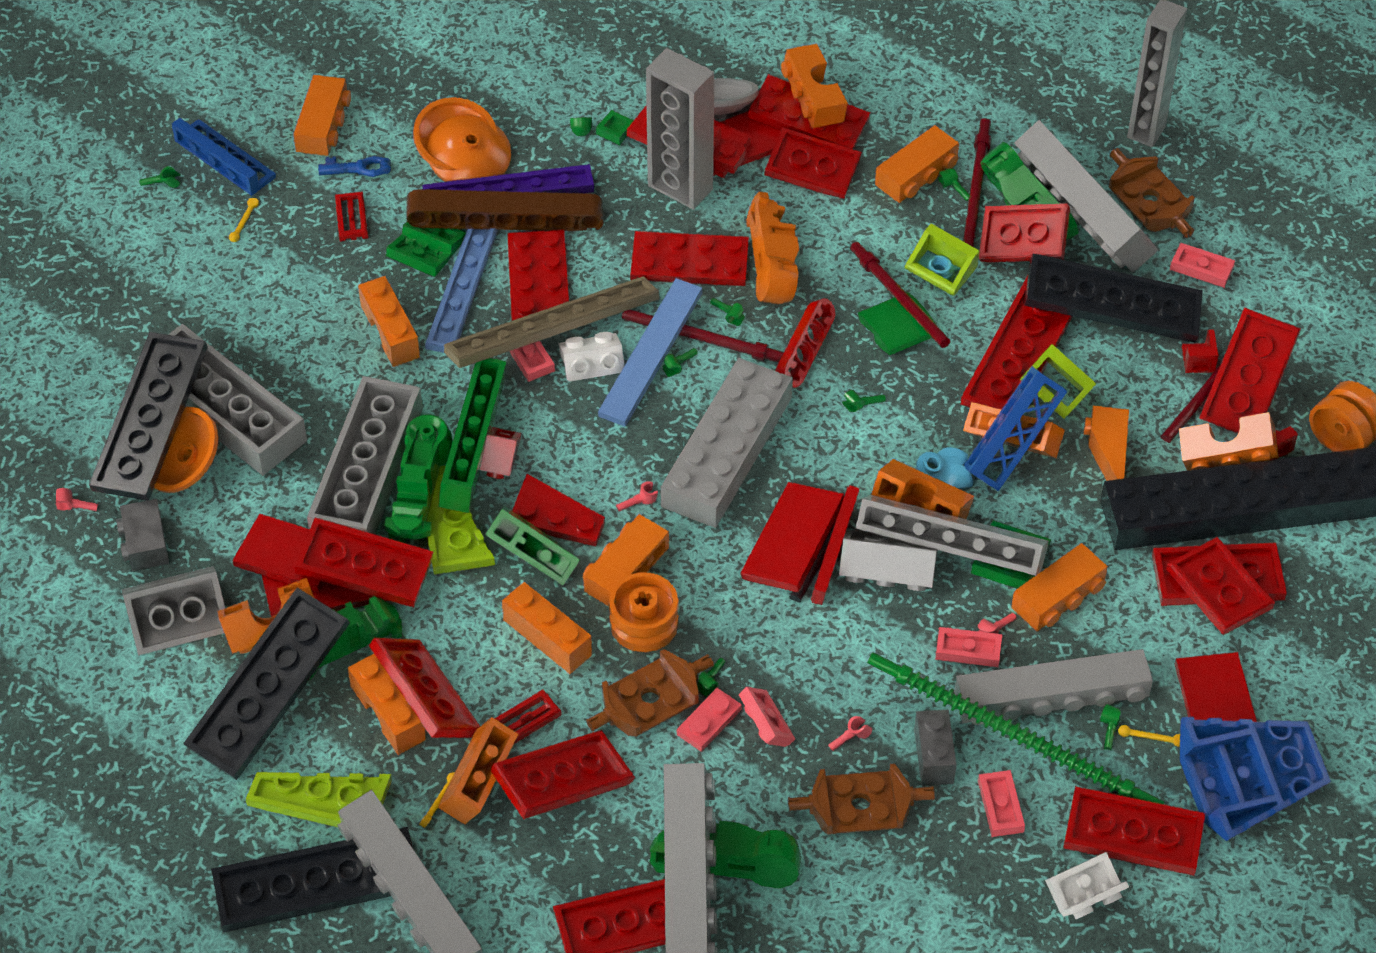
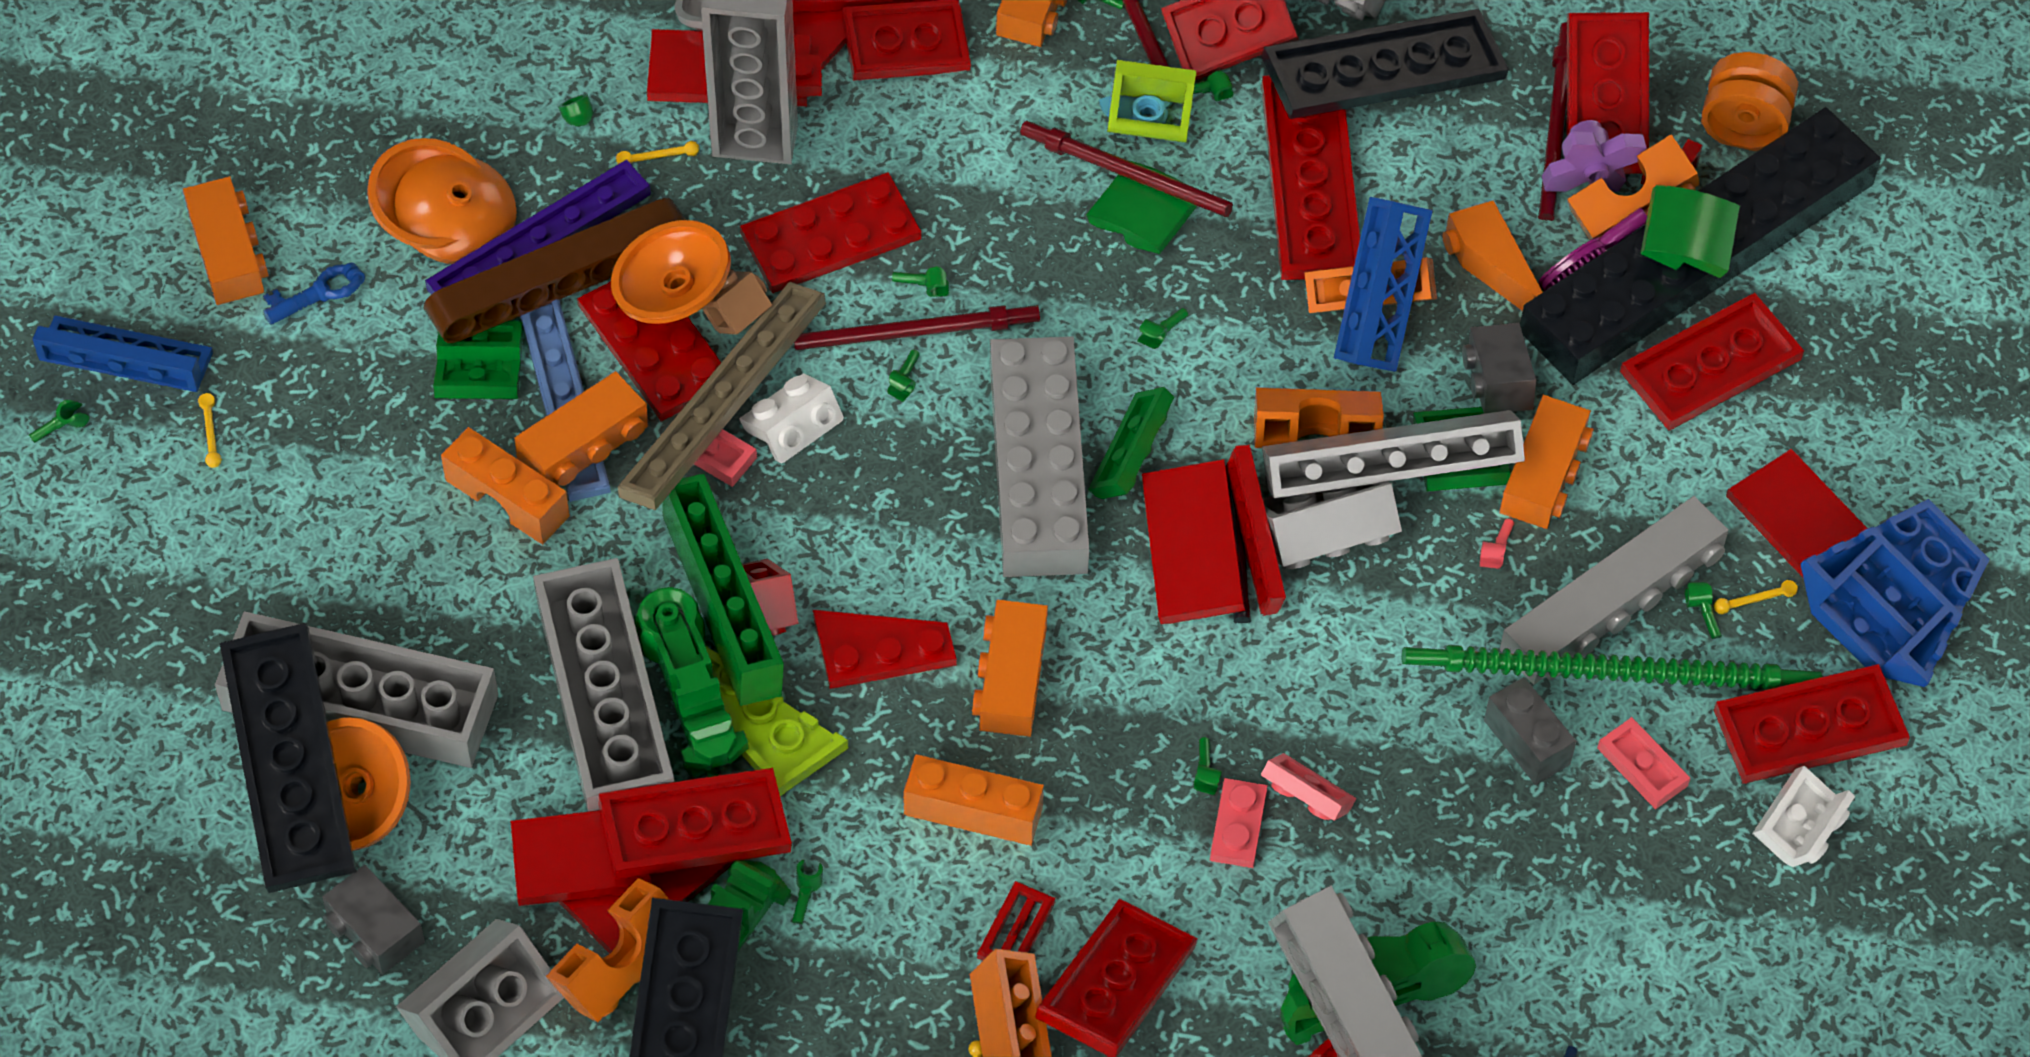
camera: 30 degrees left, 5 degrees up
(65, 501) = (231, 924): coral hand -> none
(352, 233) = (370, 387): red tile -> none
(394, 713) = (865, 1003): orange arch -> none
(415, 631) = (807, 885): none -> green hand
(425, 687) = (876, 949): red tile -> none
(453, 308) = (583, 430): none -> orange brick
(532, 545) = (884, 701): green slope -> none
(565, 236) = (670, 271): none -> orange dish
(599, 271) = (737, 303): none -> medium nougat brick
(614, 127) = (624, 95): green plate -> none
(637, 175) = (691, 148): none -> yellow hinge
(643, 497) = (973, 574): coral hand -> none
(643, 612) = (1080, 723): orange wheel -> none
(650, 352) = (866, 380): medium blue tile -> none
(667, 677) = (1156, 793): dark orange plate -> none
(773, 250) = (936, 177): orange piece -> none
(793, 461) = (1131, 443): none -> green plate
(801, 339) = (1049, 278): red beam -> none
(853, 725) = (1416, 760): coral hand -> none
(884, 790) = (1502, 811): dark orange plate -> none
(948, 467) = (1319, 367): medium azure plate -> none
(968, 647) = (1486, 586): coral plate -> none
(997, 270) = (1218, 84): none -> green hand
(1066, 515) = (1500, 368): none -> flat silver brick
(1070, 372) = (1387, 179): lime tile -> none
(1180, 465) = (1592, 249): none -> magenta piece
(1201, 356) = (1525, 92): red panel -> none
(1214, 406) = (1591, 157): none -> medium lavender plant
(1220, 585) = (1728, 375): red tile -> none
(1245, 478) = (1690, 229): none -> green slope

